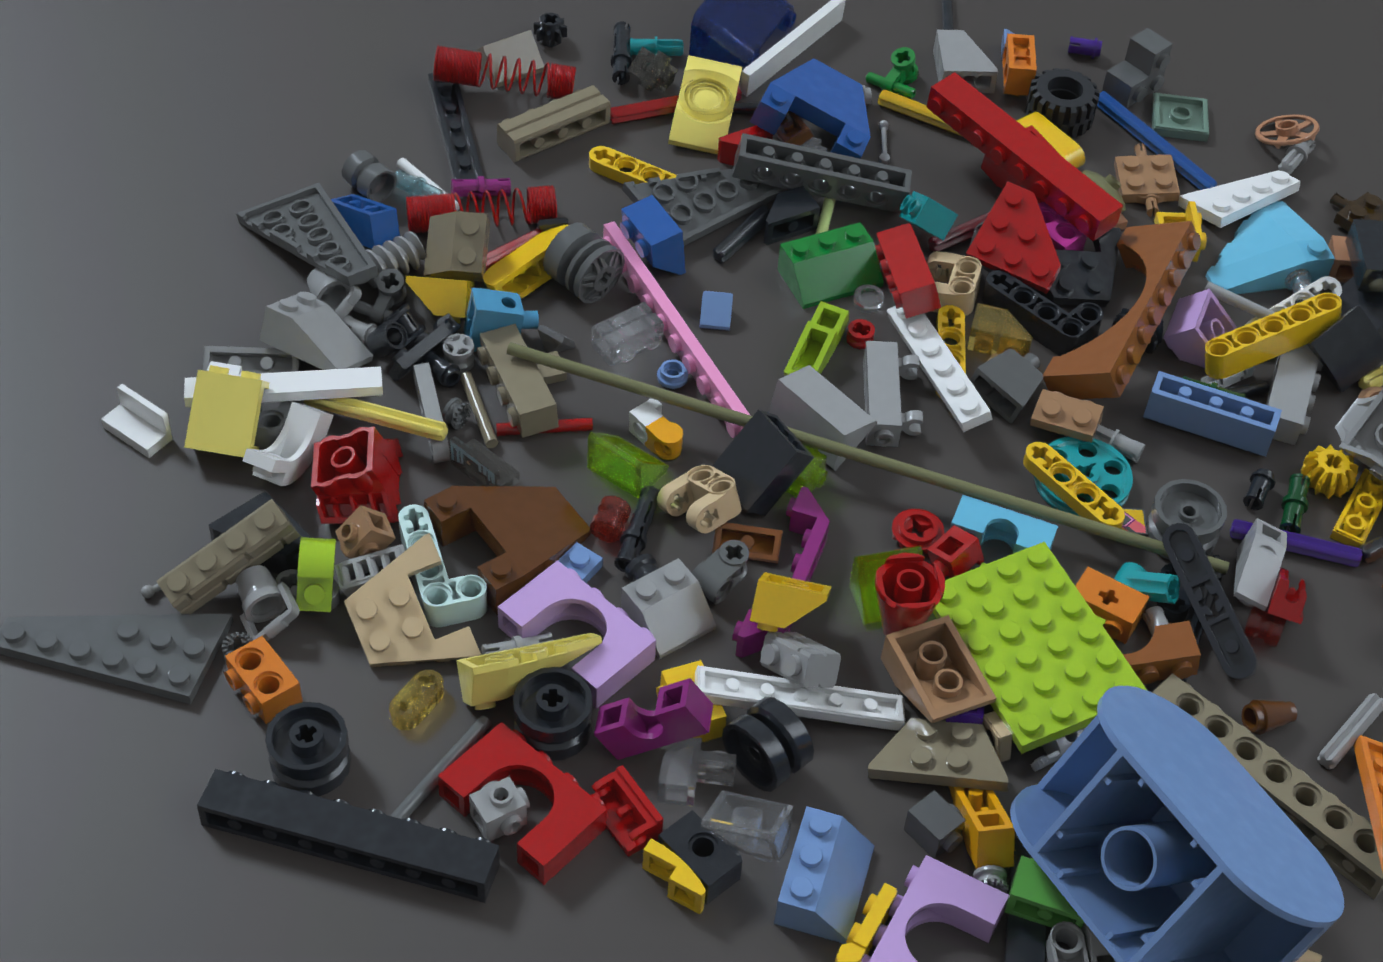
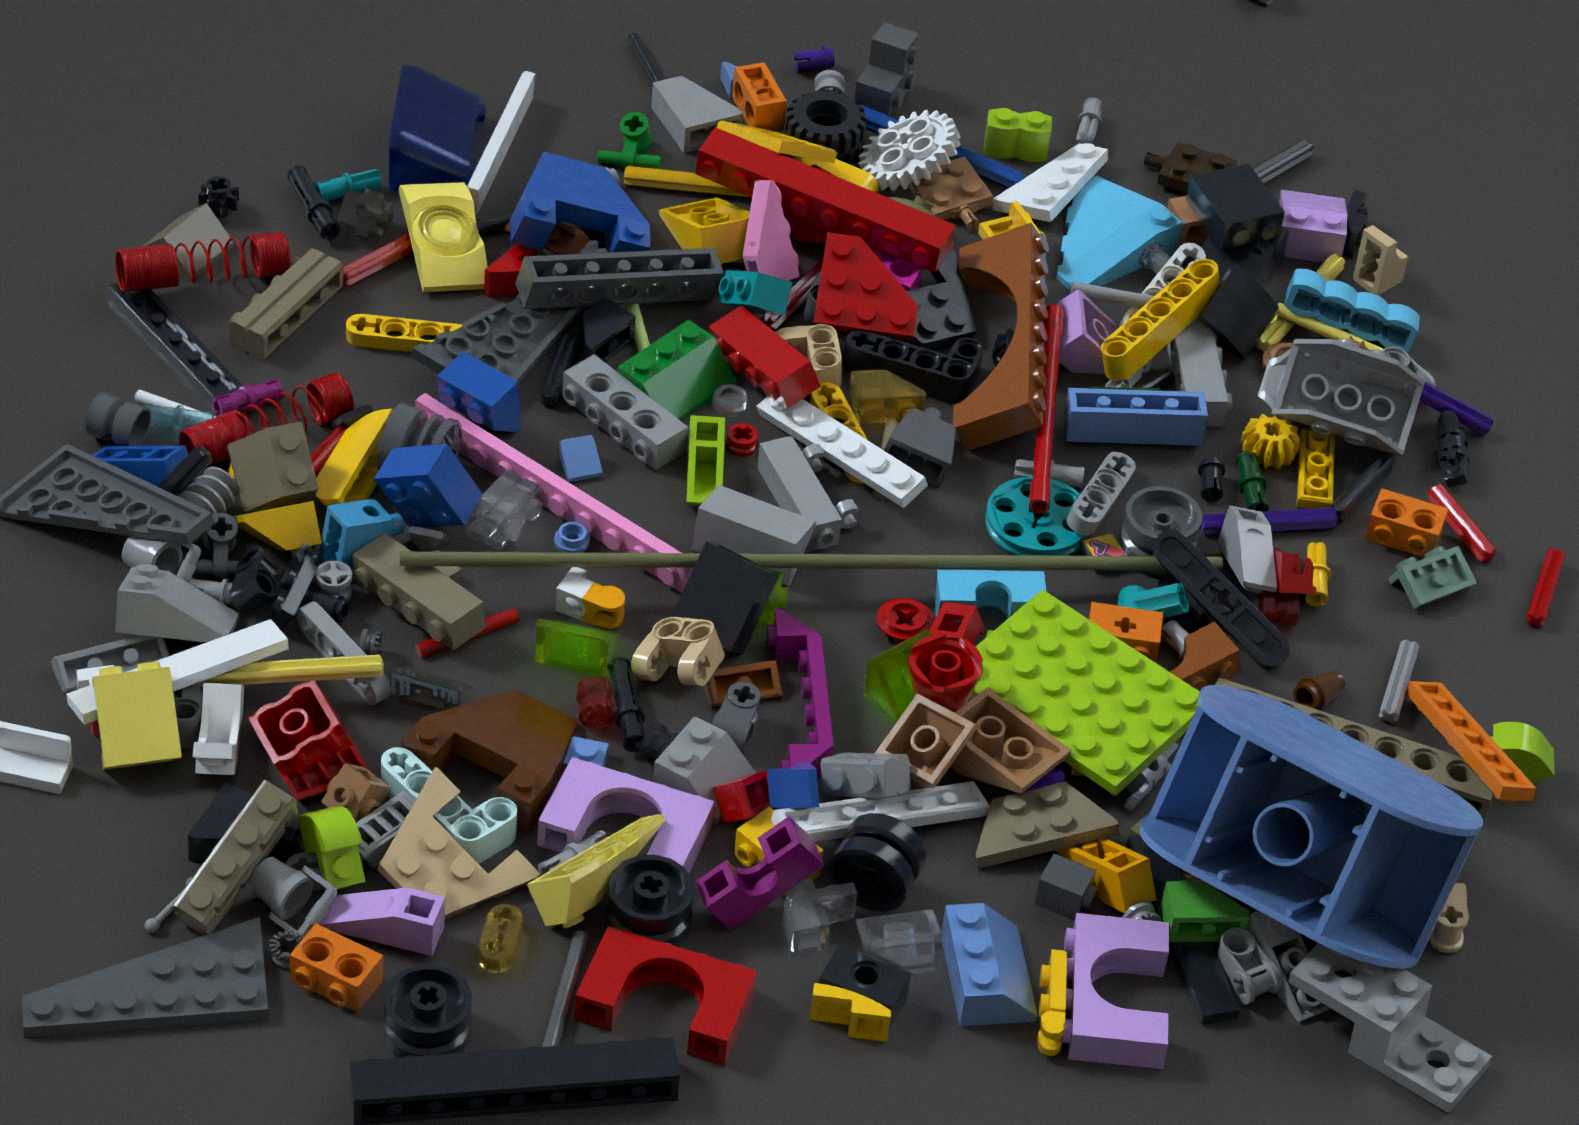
camera: 25 degrees left, 5 degrees down
(331, 651) = (390, 917): none -> lavender slope
(380, 229) = (186, 471): none -> black axle
(479, 410) = (392, 639): dark tan bar -> none
(499, 808) = (649, 1007): light grey brick -> none
(566, 296) = (428, 486): none -> blue brick
(629, 811) = (782, 972): red hinge -> none
(692, 643) = (743, 797): none -> red slope
(727, 650) = (793, 786): none -> blue slope
(771, 283) = (624, 412): none -> light grey brick
(785, 600) = (826, 723): yellow slope -> none
(867, 645) = (929, 738): none -> medium nougat slope
(884, 157) = (664, 242): light grey hinge -> none
(931, 157) = (709, 225): none -> yellow slope
(960, 179) = (767, 235): none -> bright pink slope
(1001, 735) = (1083, 783): tan tile -> none
(1010, 100) = (779, 142): none -> yellow tile
(1067, 415) = (996, 460): medium nougat bracket -> none
(1069, 490) = (1040, 526): yellow beam -> none
(1089, 65) = (831, 80): none -> light grey wheel
(1096, 446) = (1040, 485): none -> red piece
(1124, 136) = (910, 149): none -> white gear
(1151, 474) = (1102, 493): none -> light grey beam
(1180, 116) = (957, 102): sand green tile -> none
(1226, 149) = (1017, 135): none -> lime brick
(1287, 129) = (1068, 96): nougat wheel -> none
(1317, 605) = (1321, 574): none -> yellow axle

